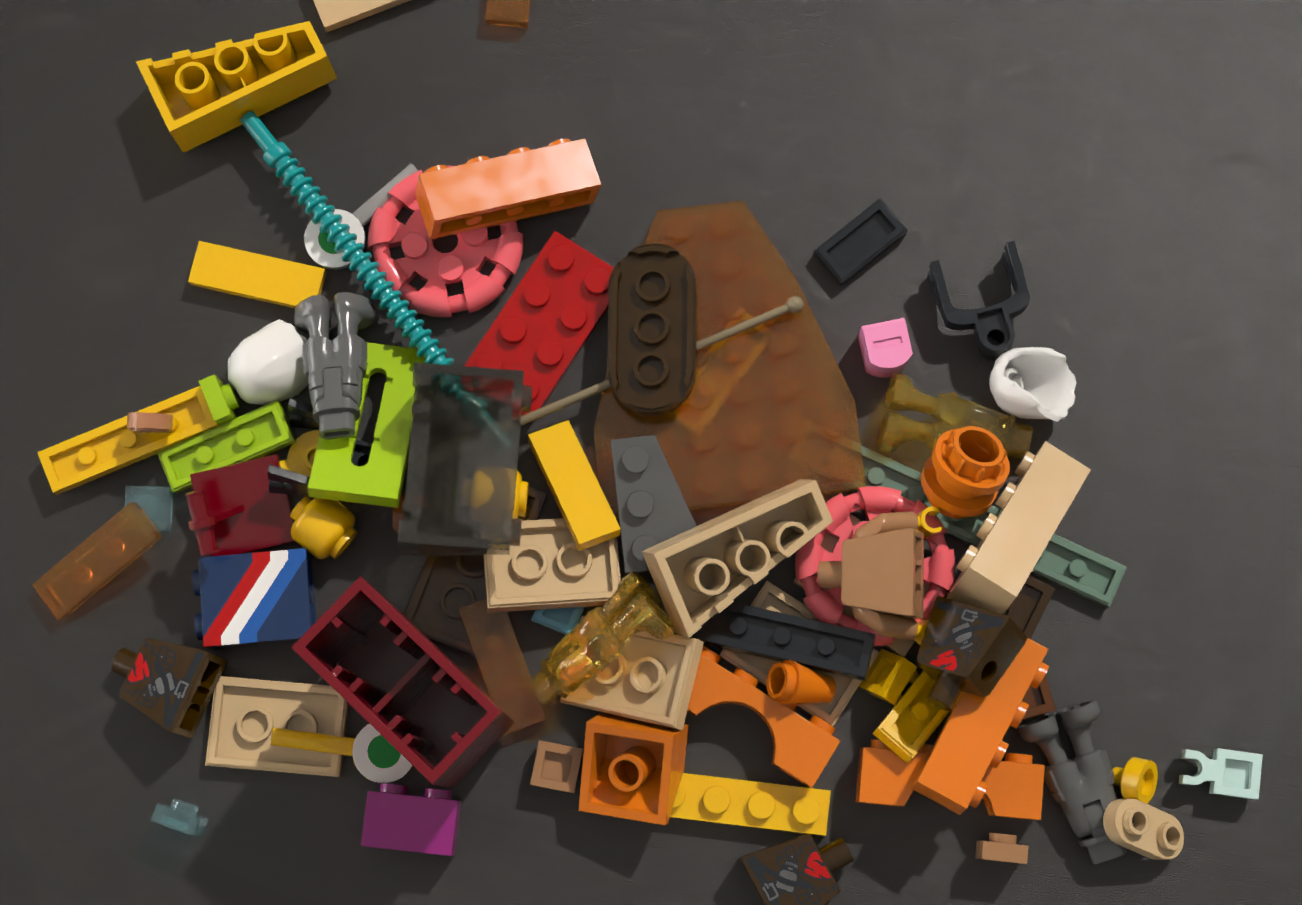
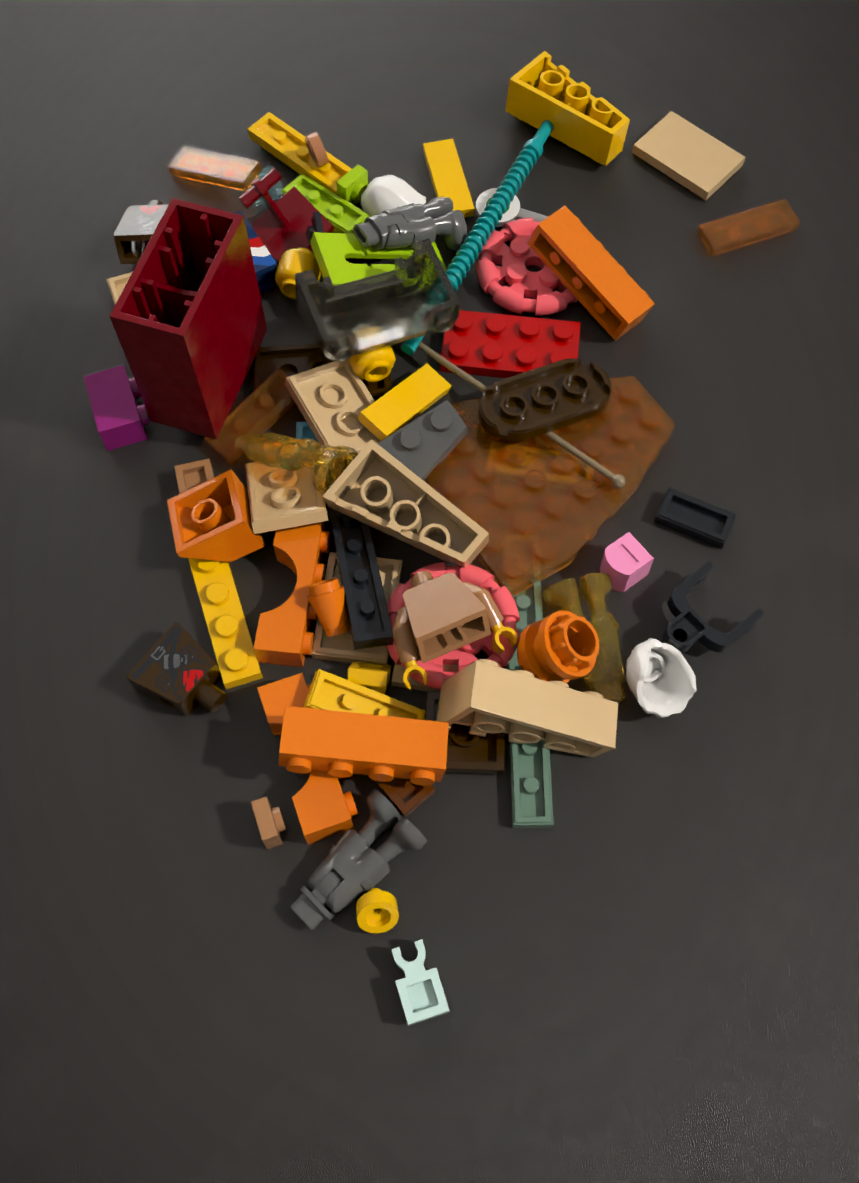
camera: 65 degrees right, 15 degrees down
(180, 816) = (63, 277): clear light blue plate -> none
(966, 650) = (409, 699): dark brown torso -> none
(1152, 832) = (336, 934): tan plate -> none

